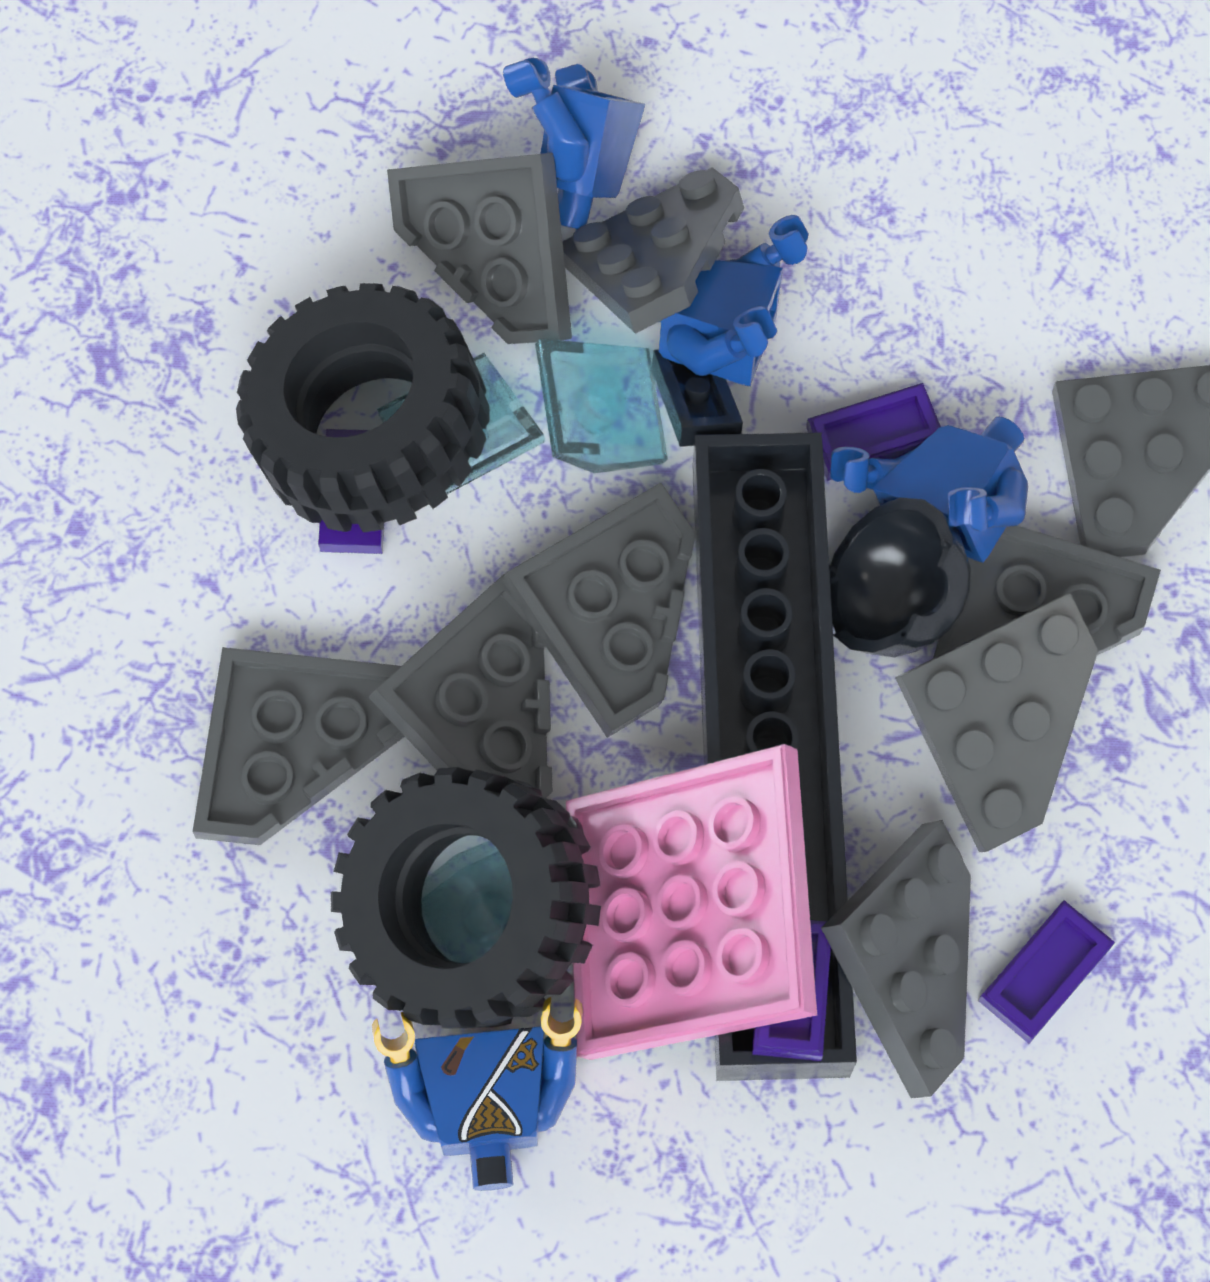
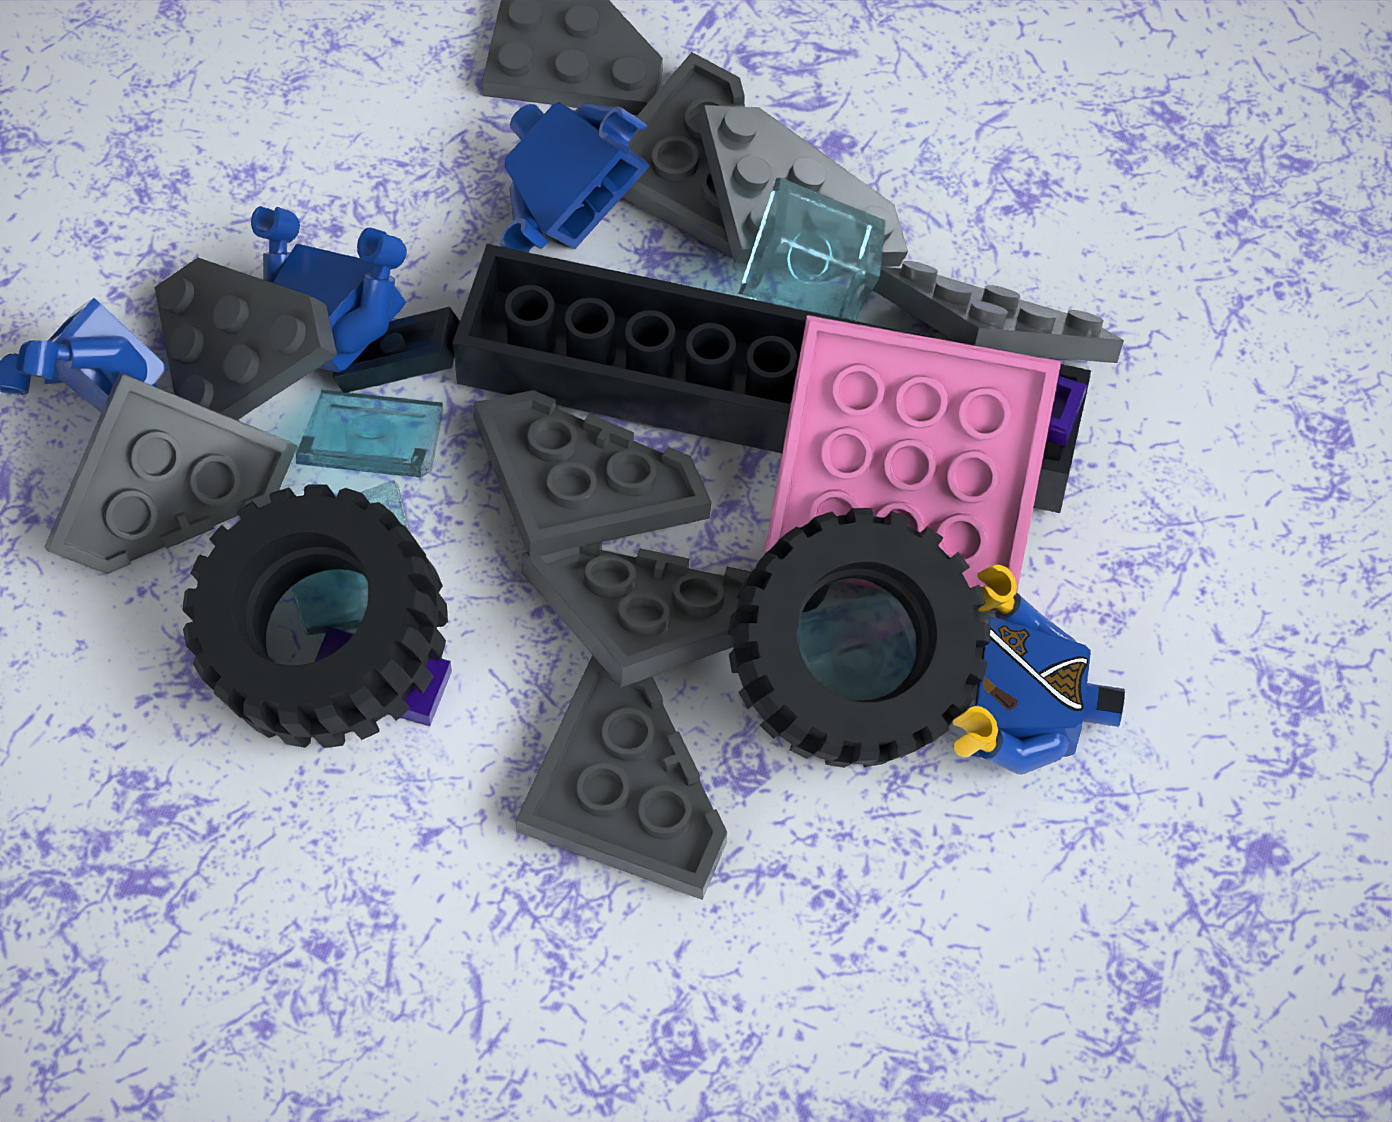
camera: 75 degrees left, 10 degrees down
(881, 426) = (471, 221): dark purple tile -> none
(898, 579) = (644, 221): black cylinder -> none
(926, 752) = (814, 253): none -> clear light blue slope
(1046, 971) = (1024, 242): dark purple tile -> none

